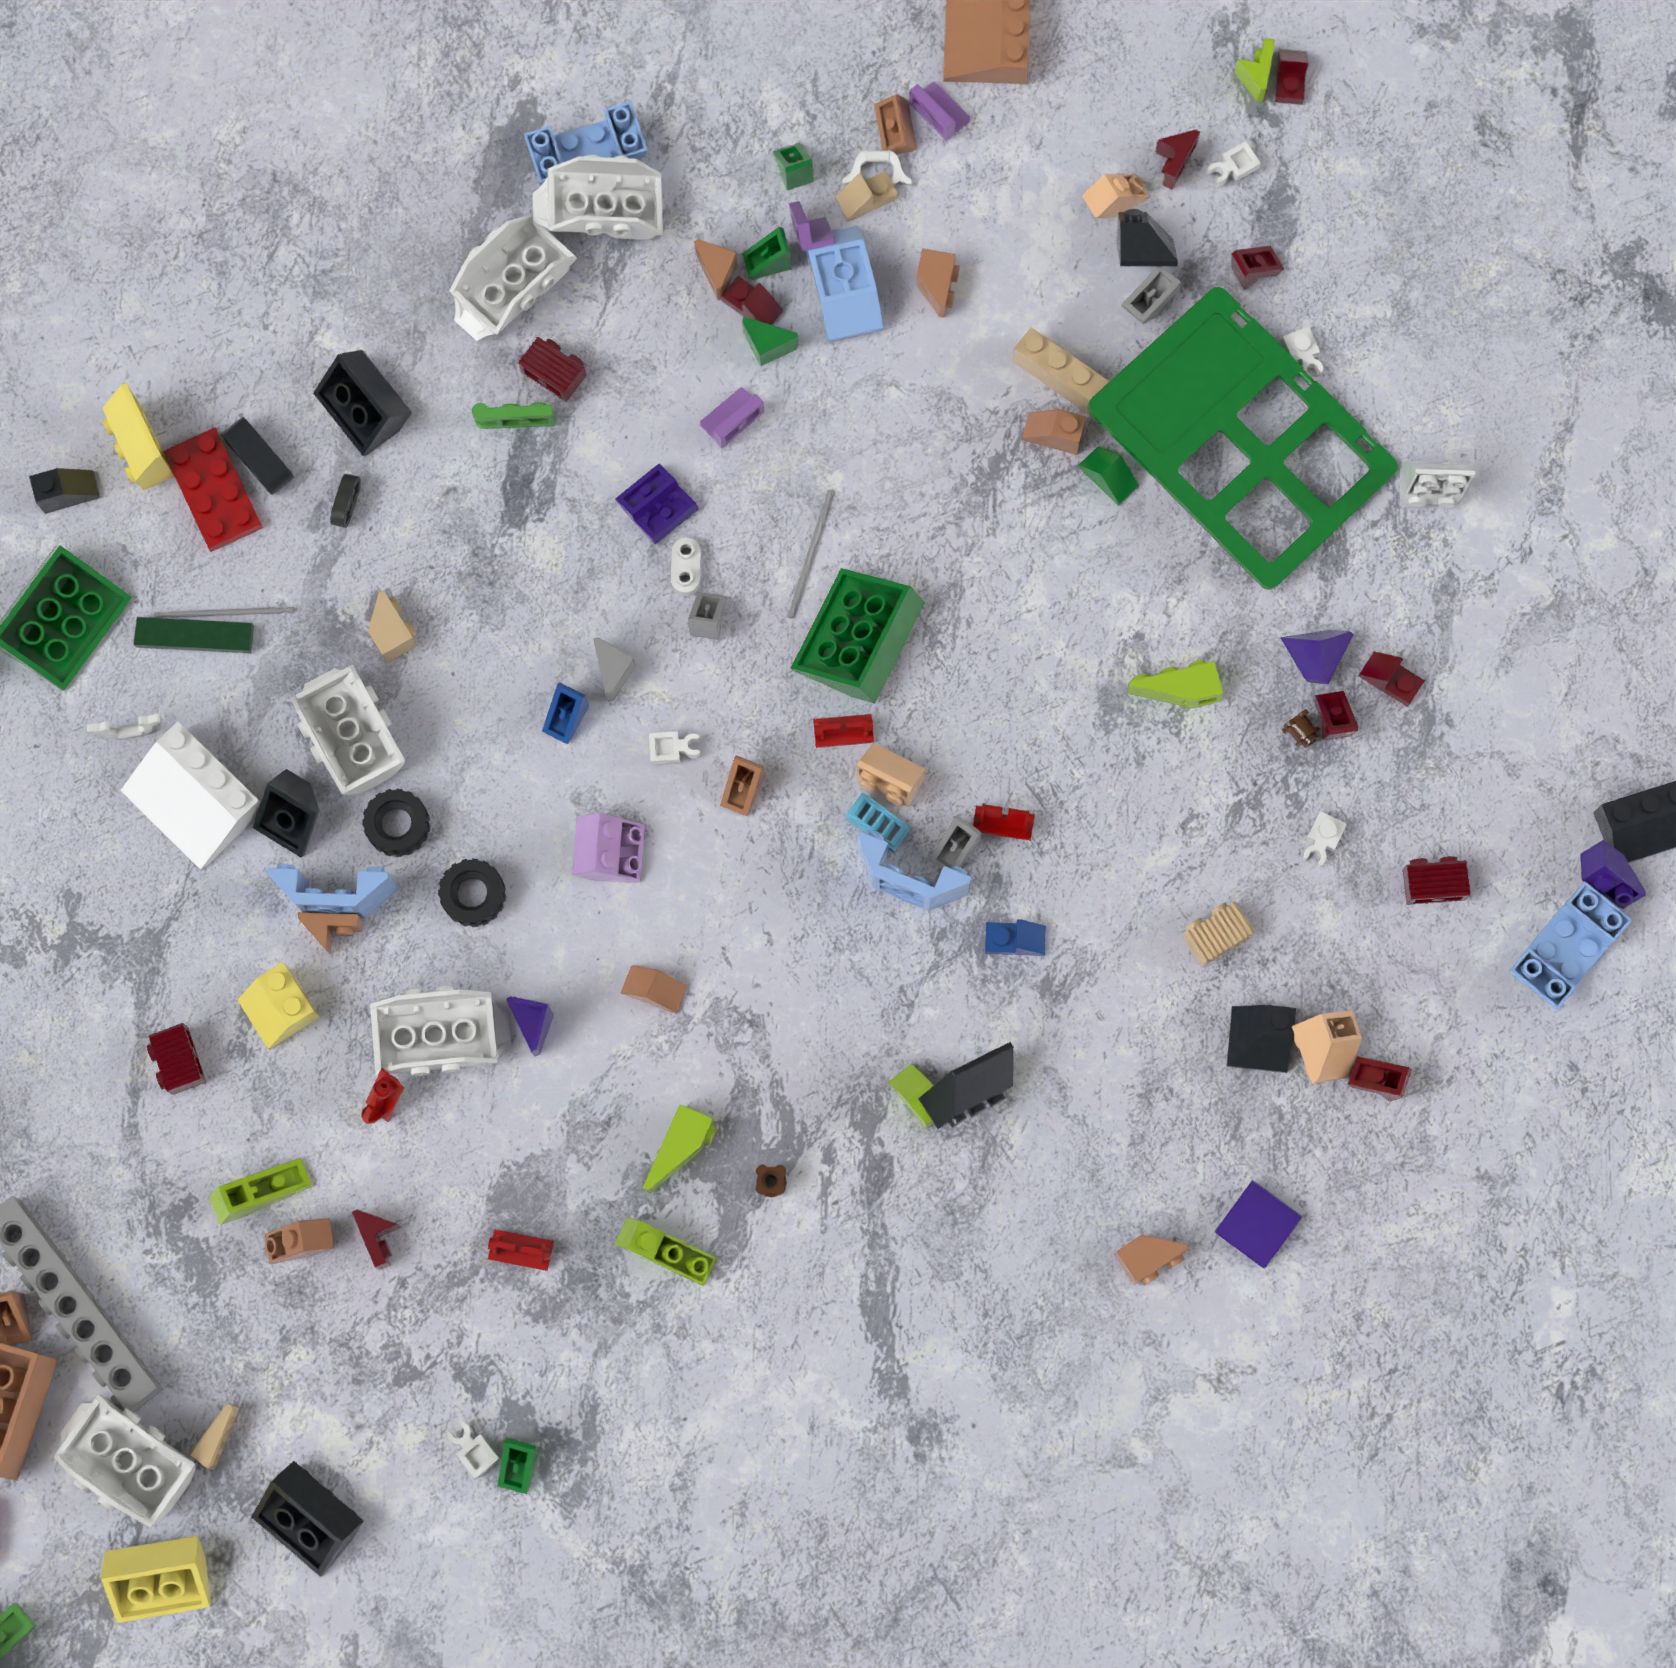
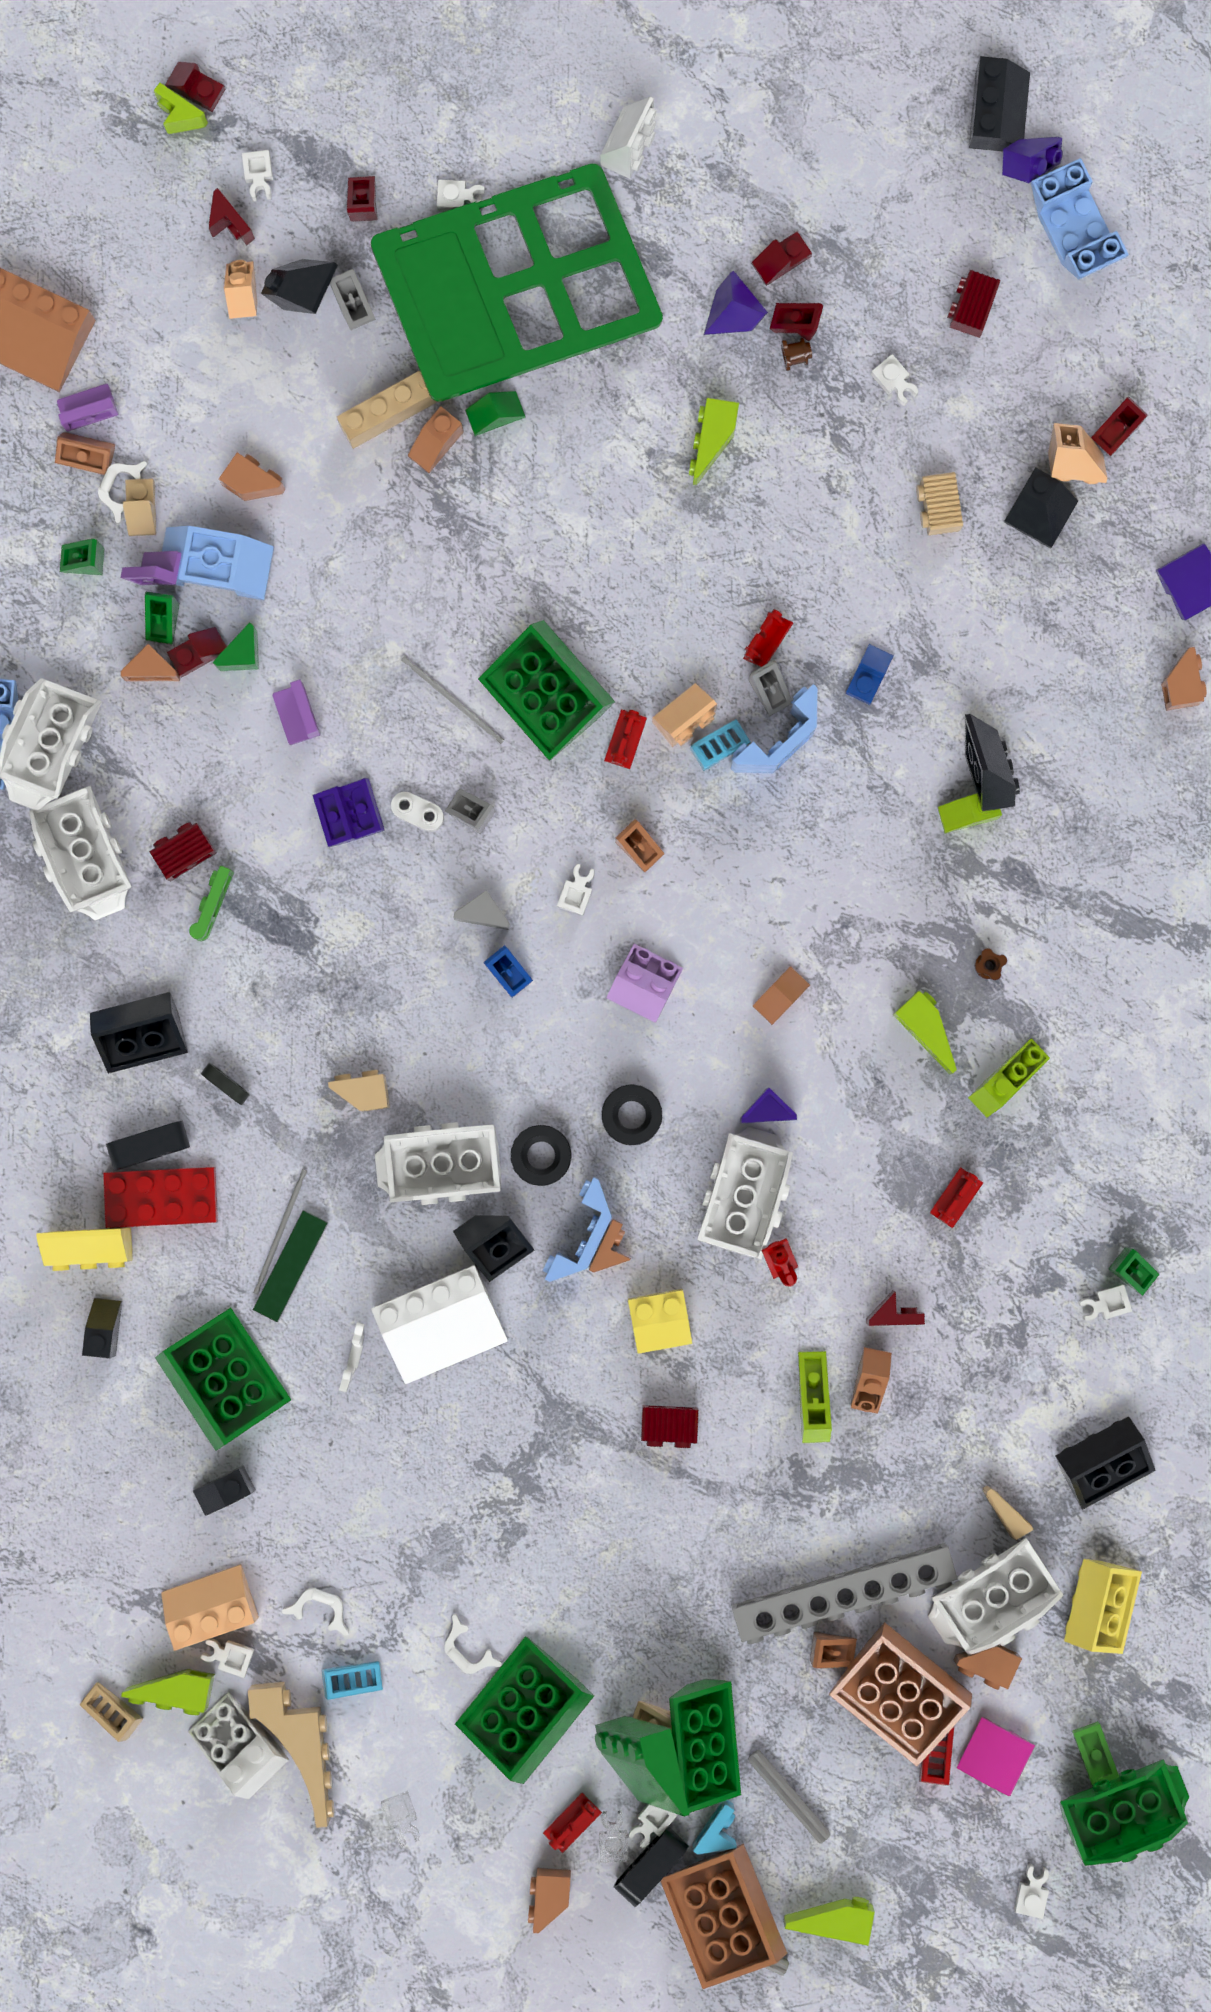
camera: 65 degrees left, 10 degrees up
(53, 1485) = (994, 1664): none -> nougat slope

